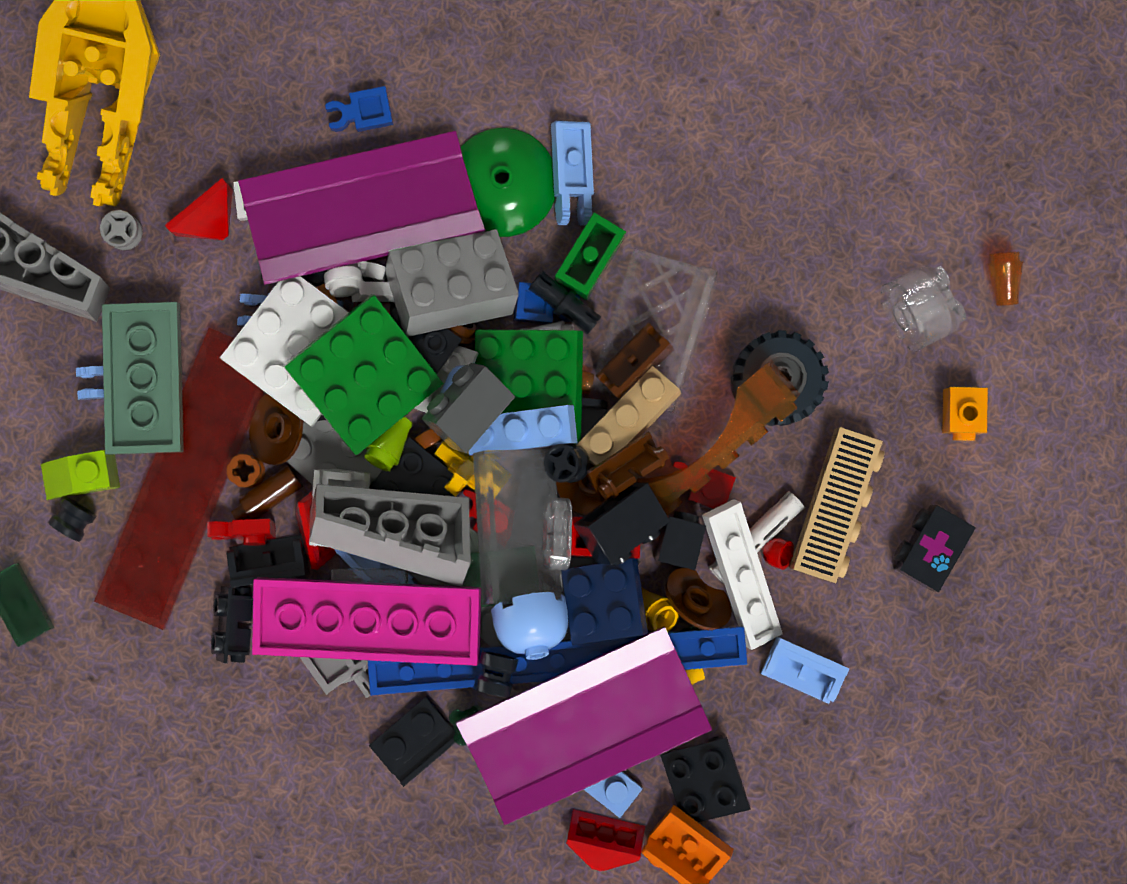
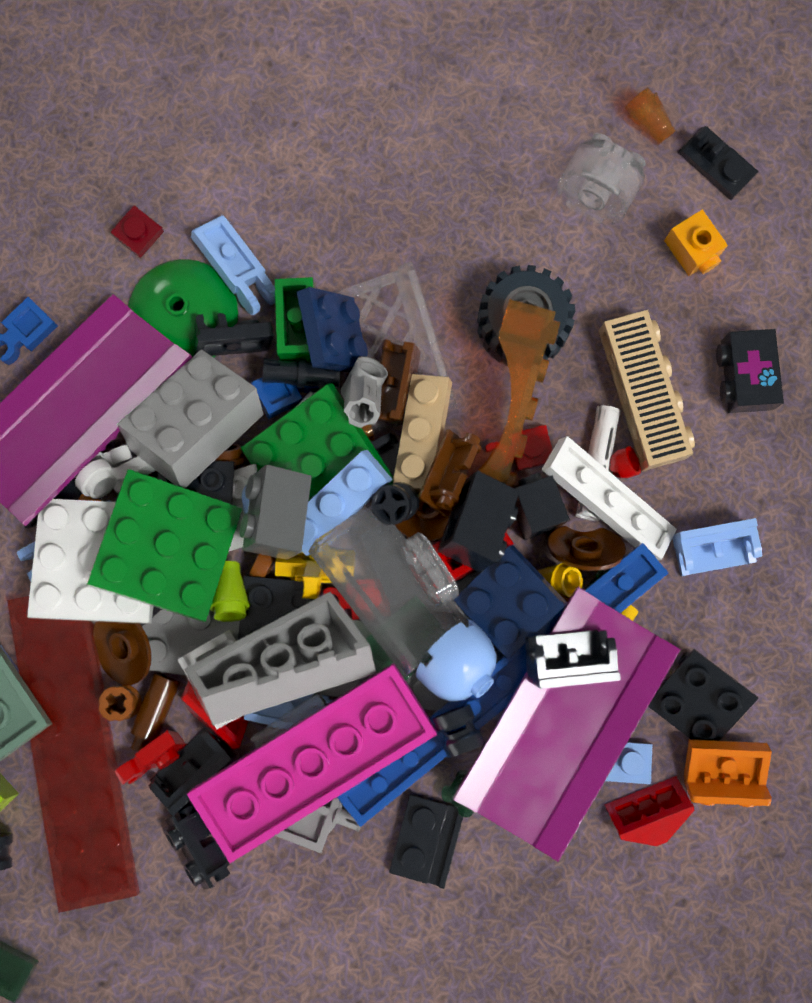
camera: 30 degrees left, 5 degrees down
(510, 87) = (137, 231): none -> dark red plate
(539, 240) = (245, 337): none -> black plate
(603, 354) = (363, 391): none -> light grey piece
(613, 287) = (331, 329): none -> dark blue plate
(620, 678) = (571, 658): none -> hinge
(1035, 353) = (718, 162): none -> black plate

